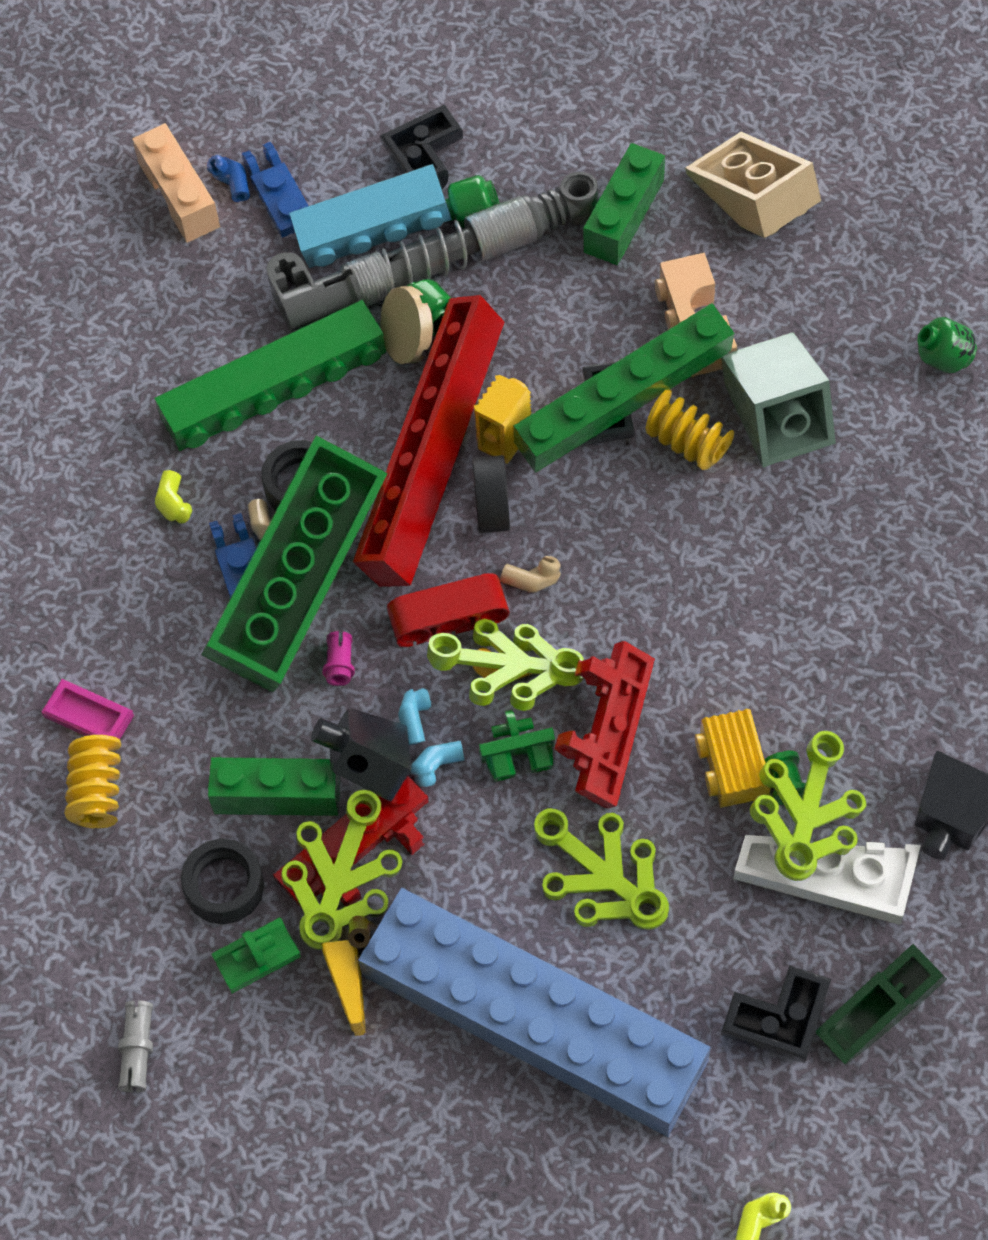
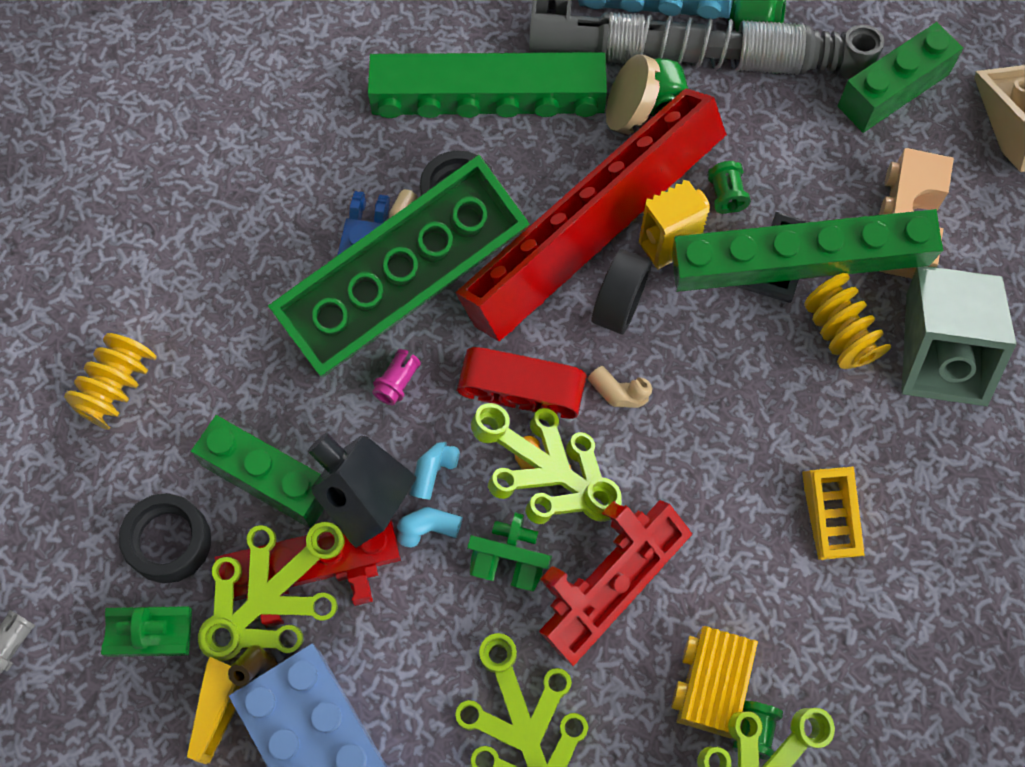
camera: 25 degrees right, 5 degrees up
(86, 711) = (149, 313): dark pink tile -> none
(168, 500) = (333, 153): neon yellow arm -> none
(530, 365) = (739, 197): none -> green bush
(737, 582) = (815, 501): none -> yellow slope

